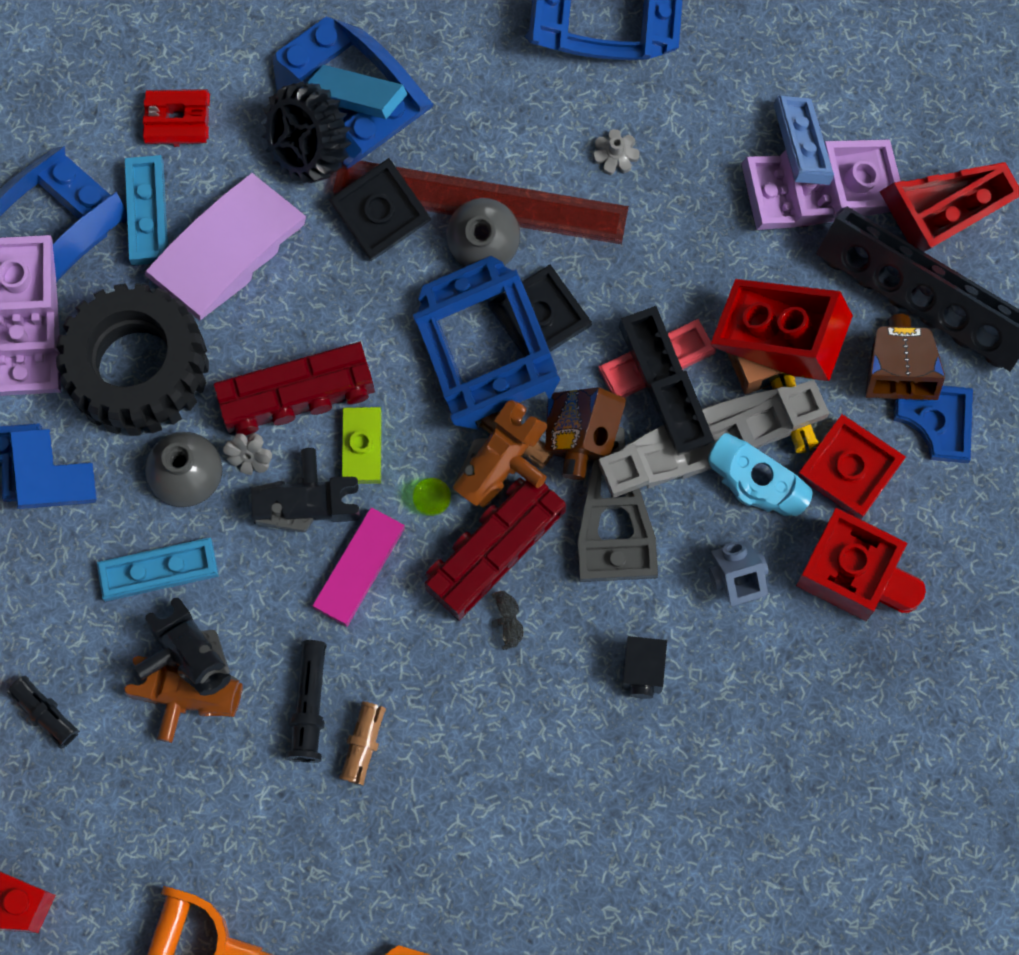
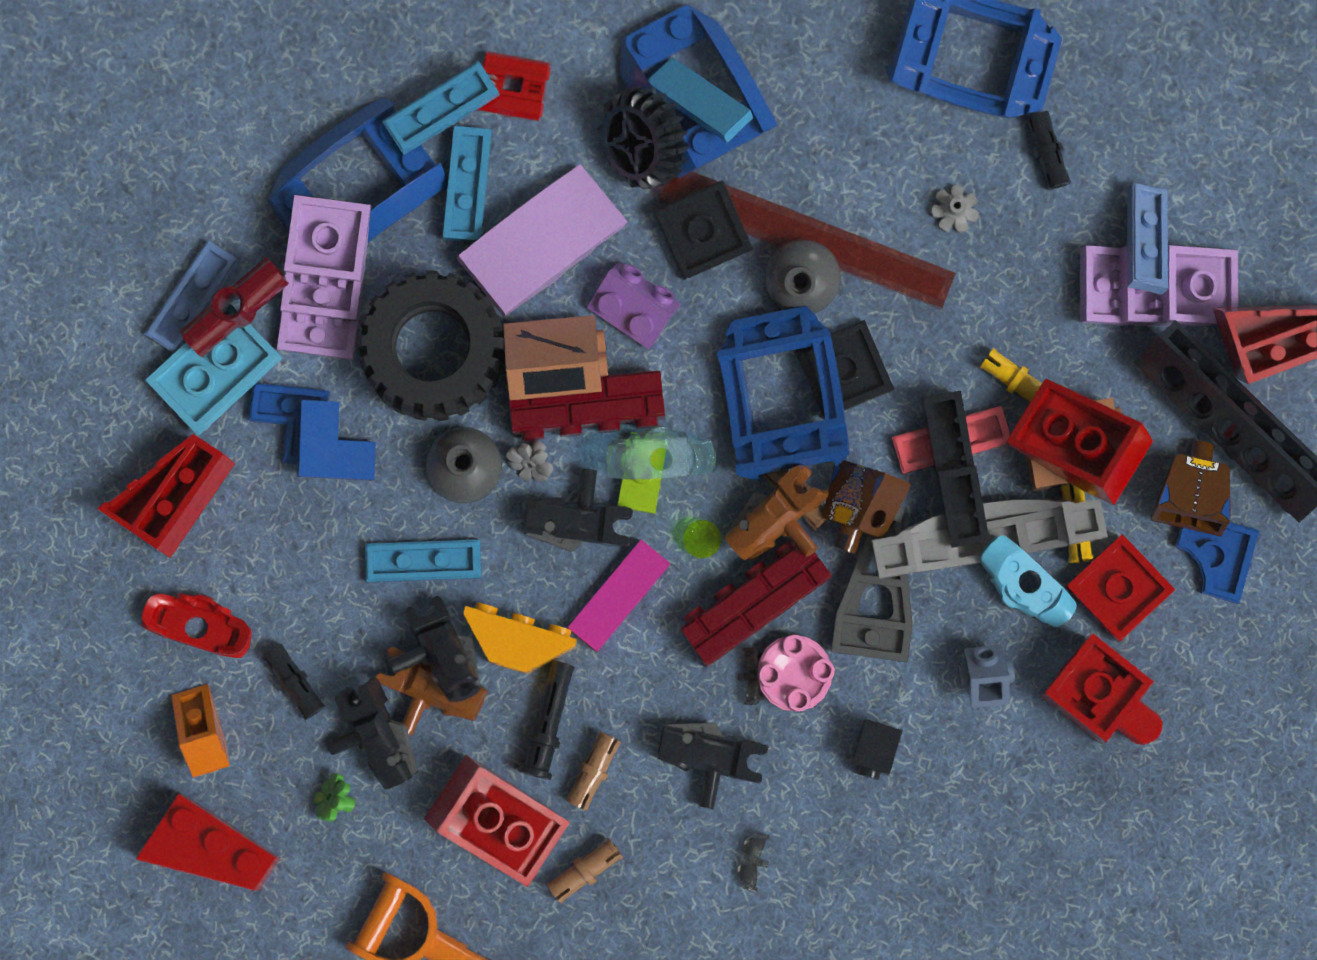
camera: 10 degrees right, 10 degrees up
(100, 821) = (333, 798): none -> bright green plant
(108, 142) = (441, 108): none -> dark azure tile
(132, 744) = (381, 737): none -> black piece
(254, 347) = (554, 357): none -> nougat brick
(264, 628) = (515, 641): none -> light orange slope
(272, 812) = (496, 821): none -> red slope
(325, 289) = (634, 304): none -> medium lavender bracket
(348, 431) = (631, 456): none -> clear light blue piece
(371, 846) = (585, 870): none -> medium nougat pin
(475, 701) = (706, 750): none -> black piece
(538, 814) = (752, 851): none -> clear smoke piece
(548, 608) = (795, 673): none -> bright pink dish
(692, 84) = (1048, 150): none -> black pin
(701, 289) = (1011, 375): none -> yellow pin

